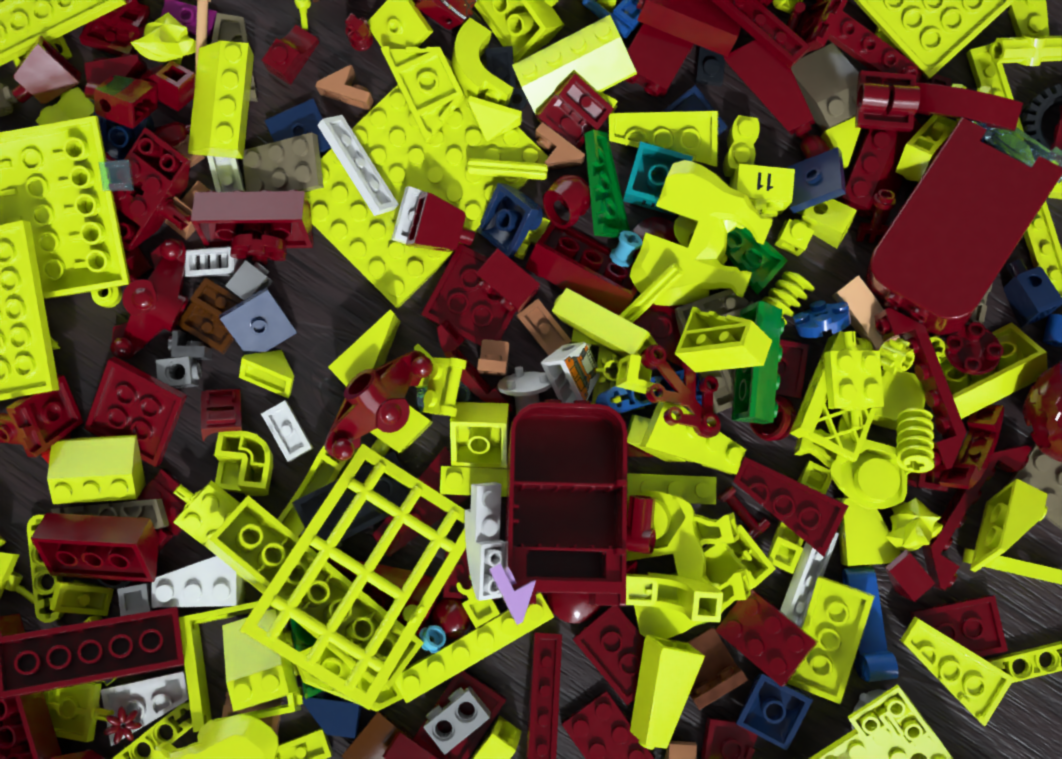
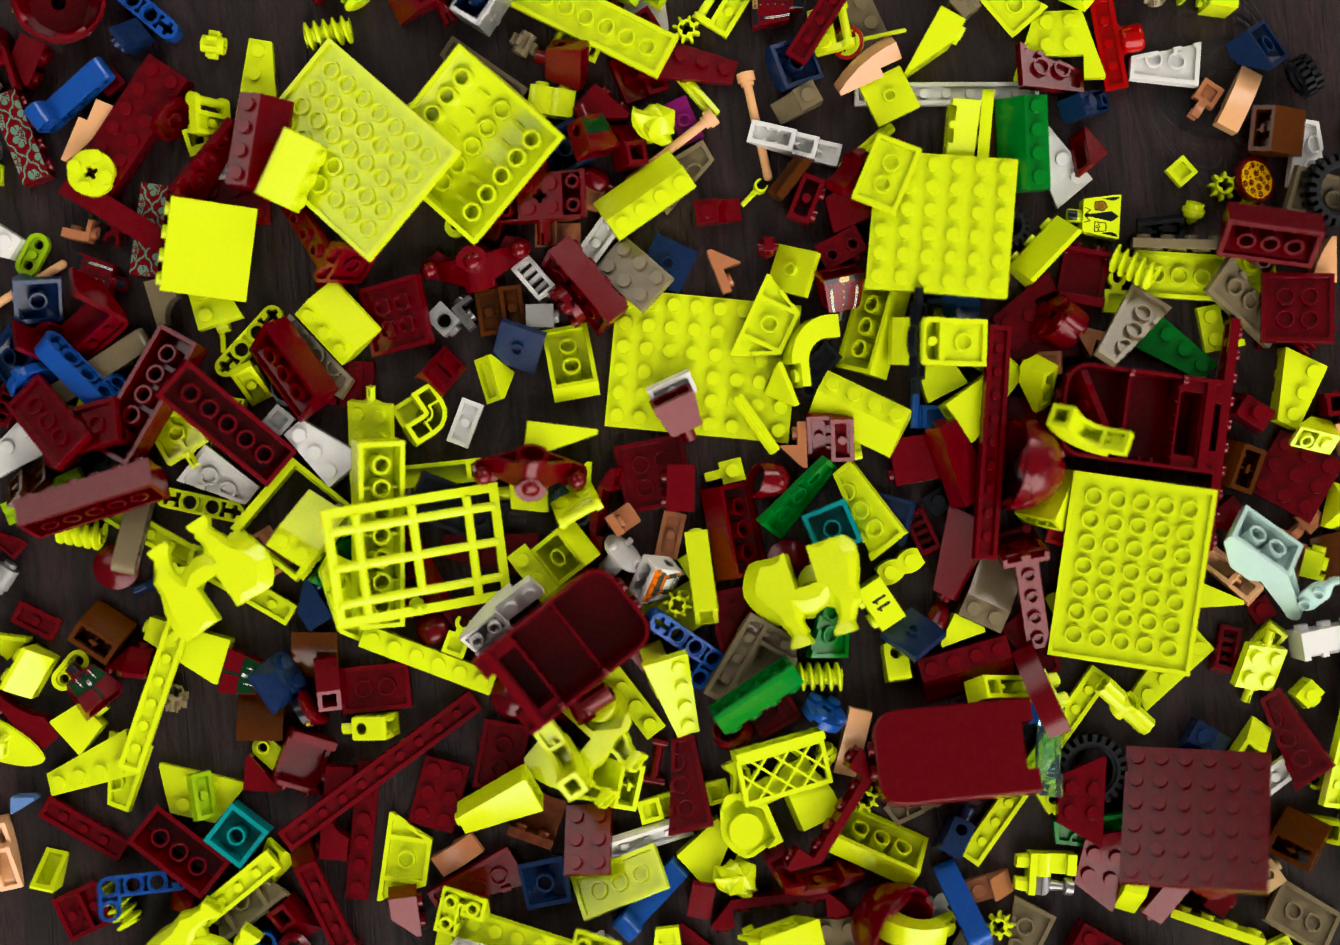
camera: 45 degrees right, 5 degrees up
(116, 175) = (536, 181): clear light blue slope -> none
(125, 728) = (196, 478): dark red plant -> none
(315, 290) = (571, 363): none -> neon yellow slope
(358, 165) = (676, 324): white plate -> none
(437, 635) = (415, 631): medium azure plate -> none
(461, 724) = (374, 692): light grey brick -> none
(509, 219) = (723, 453): dark blue slope -> none
(516, 600) = (479, 666): lavender slope -> none
(627, 245) = (763, 546): medium azure bush -> none
(633, 374) = (684, 622): neon yellow panel -> none
(652, 293) = (746, 589): neon yellow axle -> none
(684, 394) = (698, 663): dark red plant -> none
(721, 342) = (746, 661): neon yellow wedge -> none
(729, 96) = (933, 537): none -> dark red slope
(794, 236) = (867, 649): neon yellow brick -> none
(853, 379) = (797, 764): neon yellow plate -> none
(884, 201) = (935, 691): dark red hinge -> none
(886, 101) = (1002, 638): dark red plate -> none
(896, 355) = (836, 779): neon yellow gear -> none
(915, 440) = (789, 834): neon yellow piece -> none
(973, 349) = (885, 826): dark red dish -> none

